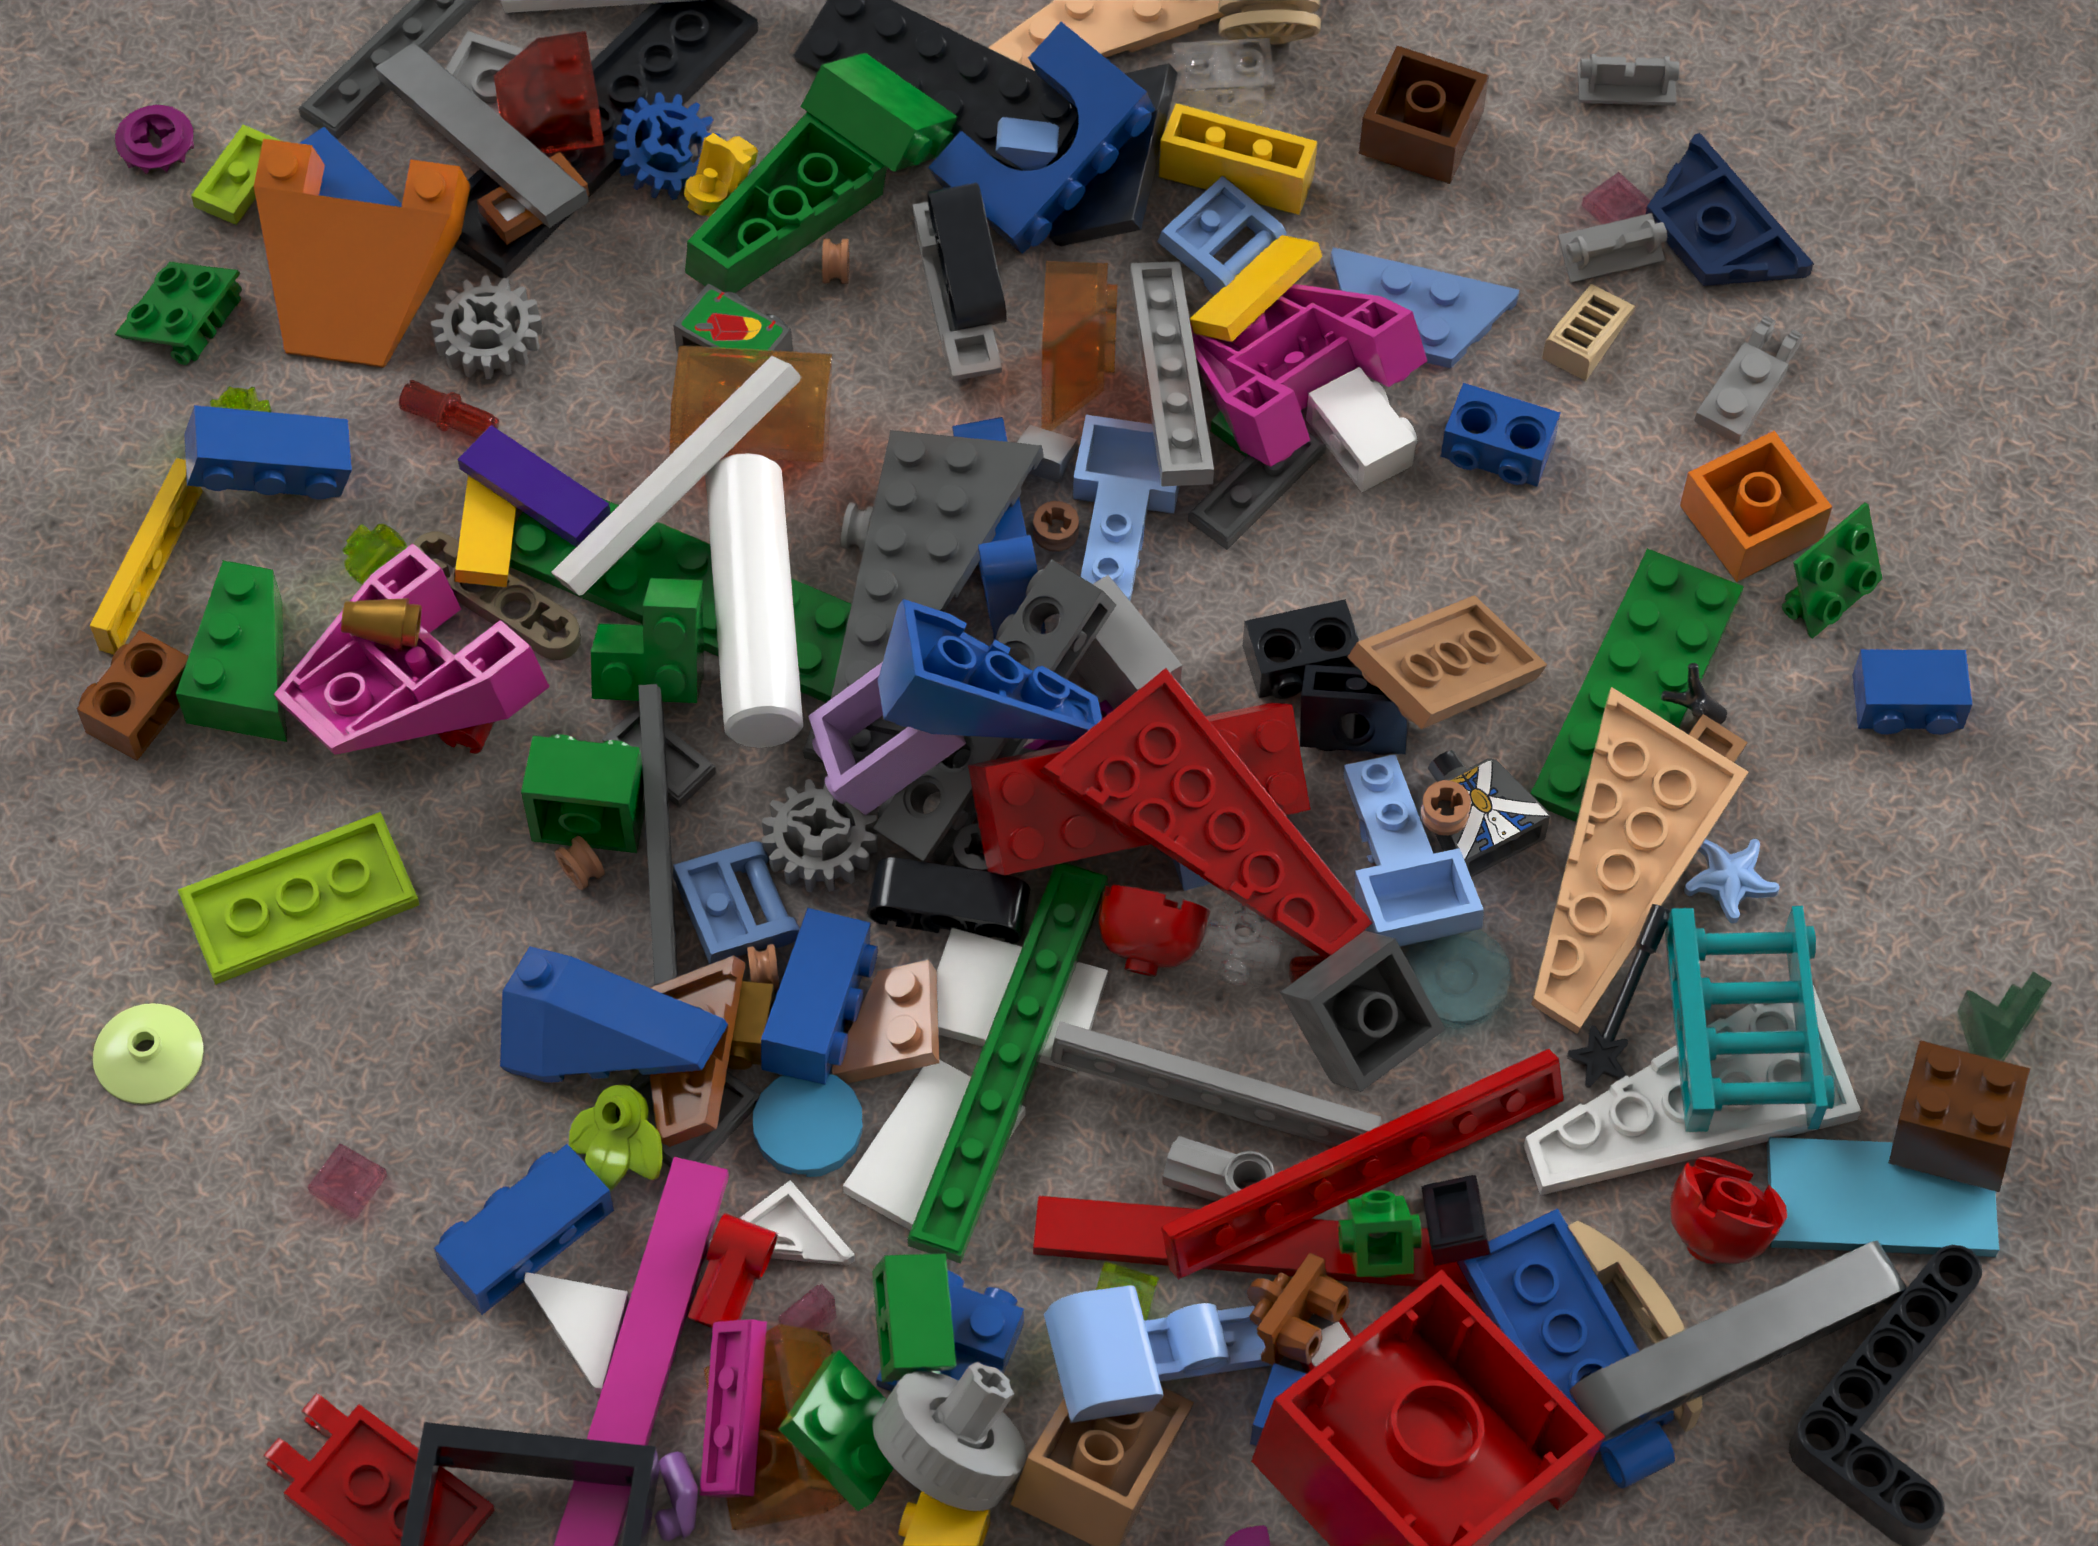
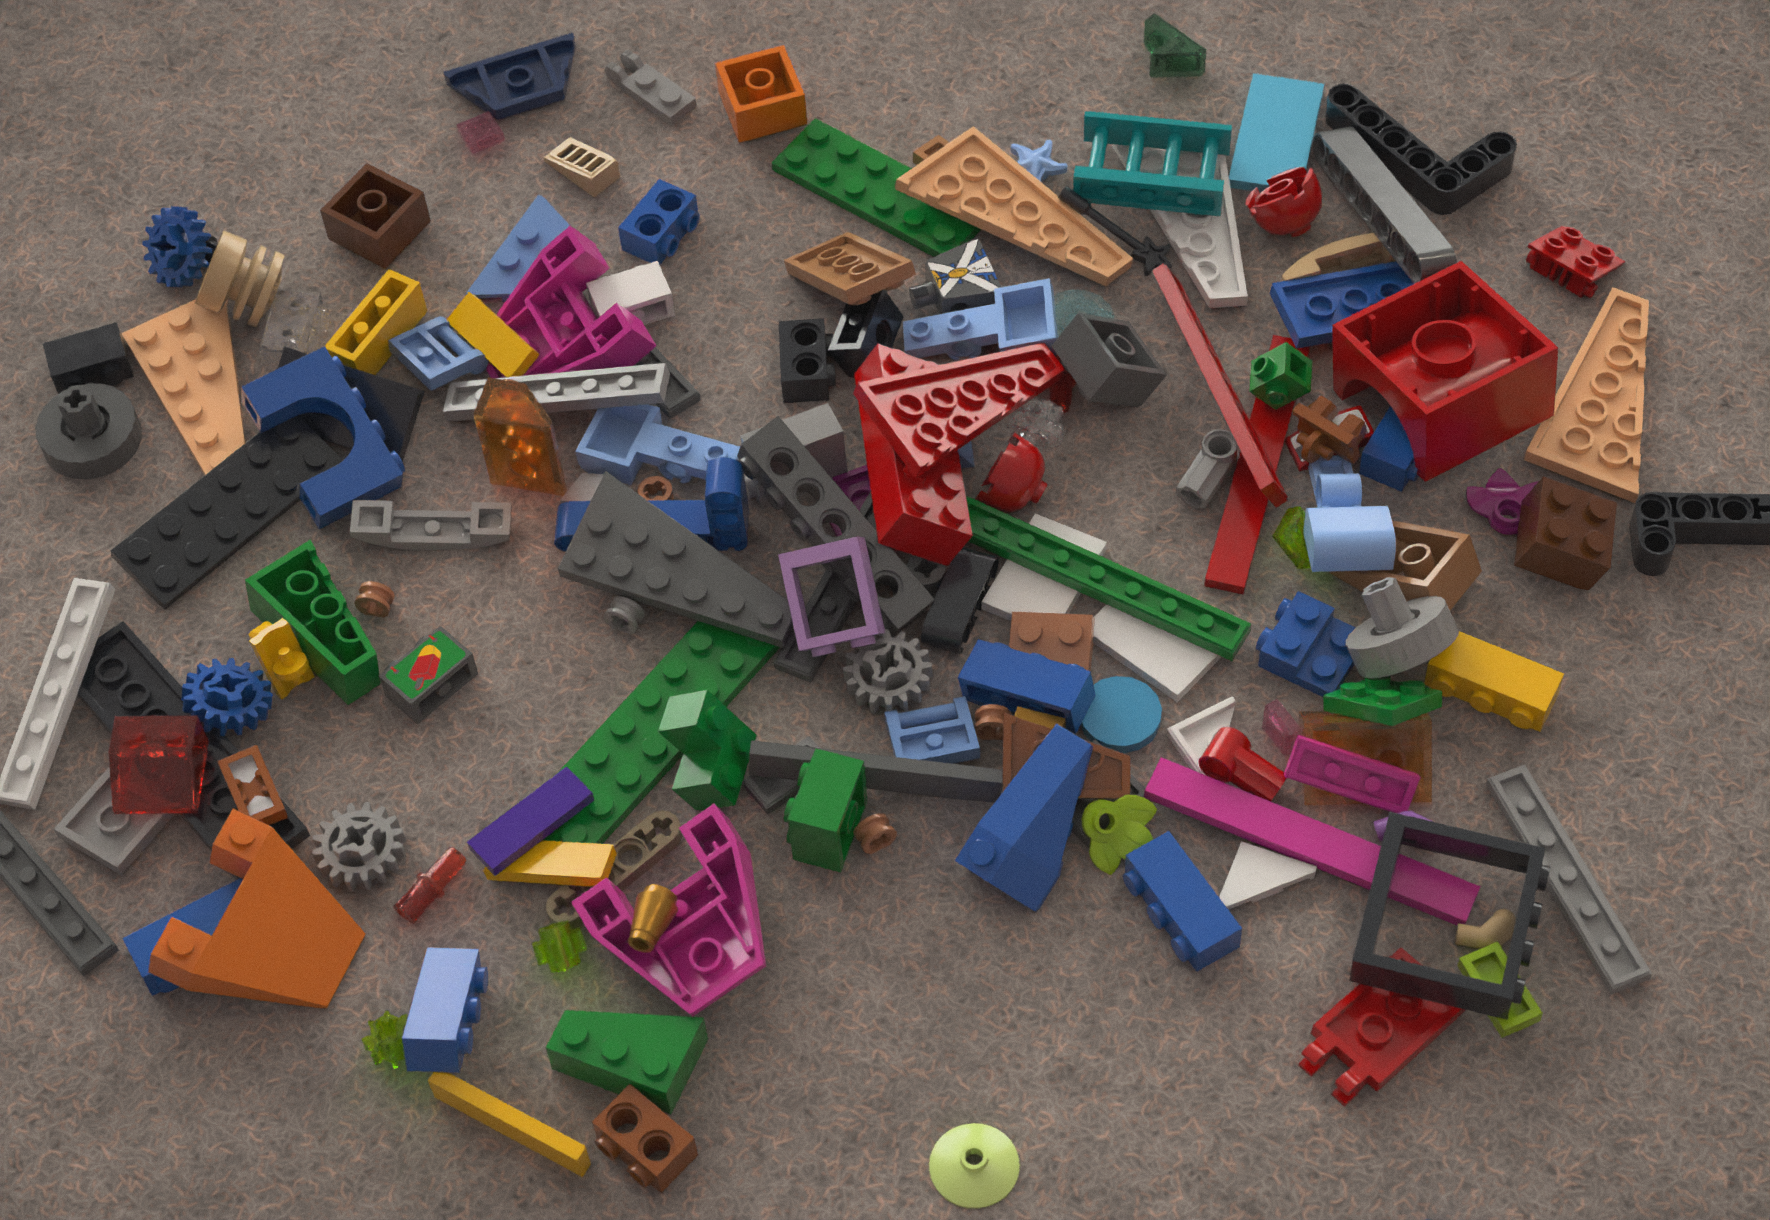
camera: 75 degrees left, 5 degrees down
(169, 124) = (55, 1080): magenta gear -> none
(183, 308) = (258, 1080): green hinge -> none
(229, 184) = (135, 1022): lime plate -> none
(298, 897) = (857, 1041): lime tile -> none
(347, 1181) = (1115, 1026): clear pink tile -> none
(482, 135) = (177, 817): dark grey tile -> none
(676, 475) = (567, 704): white tile -> none
(753, 601) = (667, 668): white cylinder -> none
(790, 431) = (503, 660): clear orange slope -> none
(879, 112) = (258, 538): green brick -> none
(913, 1315) = (1303, 649): green hinge -> none
(959, 686) = (838, 510): blue wedge -> none
(967, 256) = (413, 500): black beam -> none
(1027, 142) = (326, 443): medium blue slope -> none
(1208, 1086) = (1145, 461): light grey tile -> none
(1455, 1220) = (1261, 338): black tile -> none
(1457, 796) = (960, 278): nougat bush -> none
(1612, 247) = (519, 136): light grey hinge -> none
(1617, 82) = (380, 105): light grey hinge -> none
(1696, 698) = (903, 151): black bar -> none
(1835, 573) = (821, 69): green hinge -> none
(1912, 690) = (919, 46): blue brick -> none
(1959, 1116) = (1238, 75): reddish brown brick -> none

